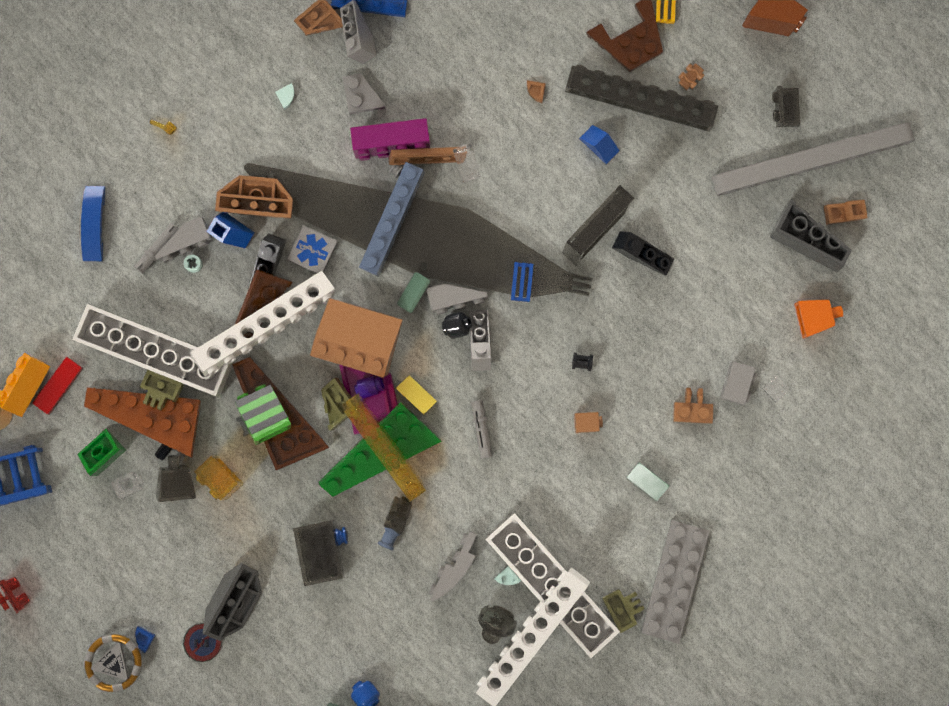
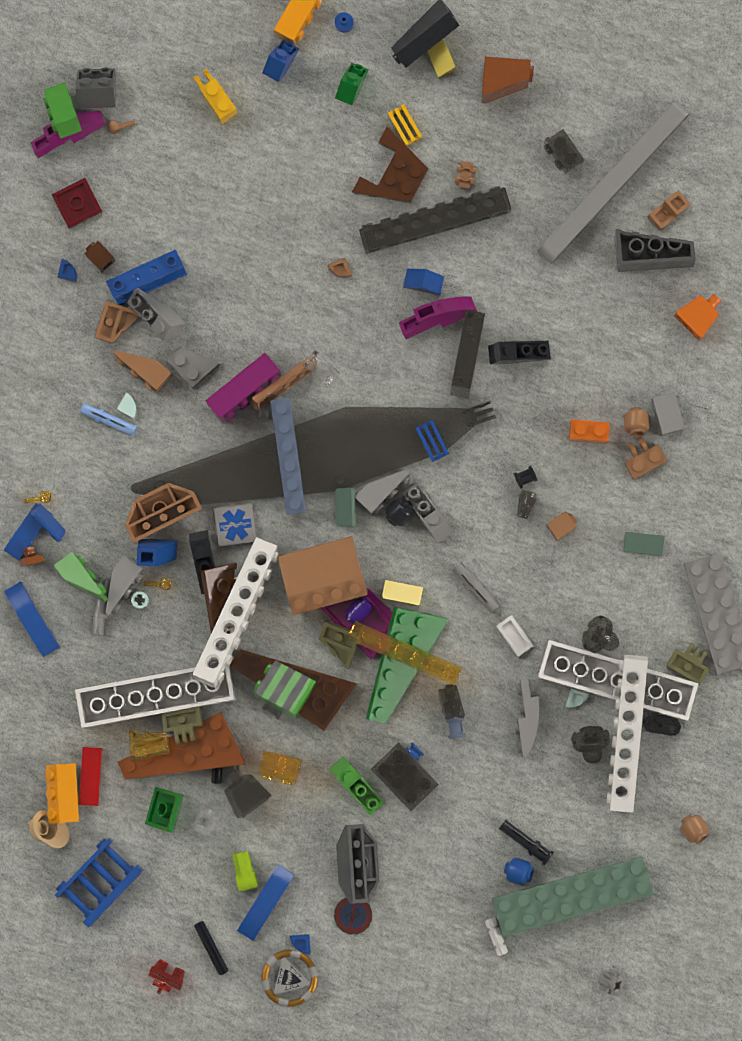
camera: 25 degrees left, 0 degrees up
(65, 594) = (211, 948): none -> black axle
(119, 389) = (147, 745): none -> clear yellow wing
(123, 171) = (30, 557): none -> dark orange tile
(132, 553) = (245, 875): none -> lime piece
(135, 584) = (265, 902): none -> blue slope
(136, 148) = (23, 536): none -> blue tile
(152, 206) = (77, 576): none -> bright green slope
(157, 150) = (48, 522): none -> blue slope
(222, 262) = (164, 583): none -> clear yellow hand
(250, 78) = (128, 429): none -> light blue pin
(274, 534) = (356, 785): none -> bright green slope
(322, 75) = (149, 370): none -> medium nougat slope
(388, 684) = (534, 847): none -> black pin
(488, 491) = (514, 636): none -> white tile
(560, 536) = (599, 634): none -> clear smoke tile
(563, 650) = (663, 720): none -> black beam
(568, 384) = (525, 504): none -> clear smoke cone
(590, 175) = (438, 312): none -> magenta slope
(660, 357) = (589, 431): none -> orange brick
(706, 374) = (636, 422): none -> medium nougat head

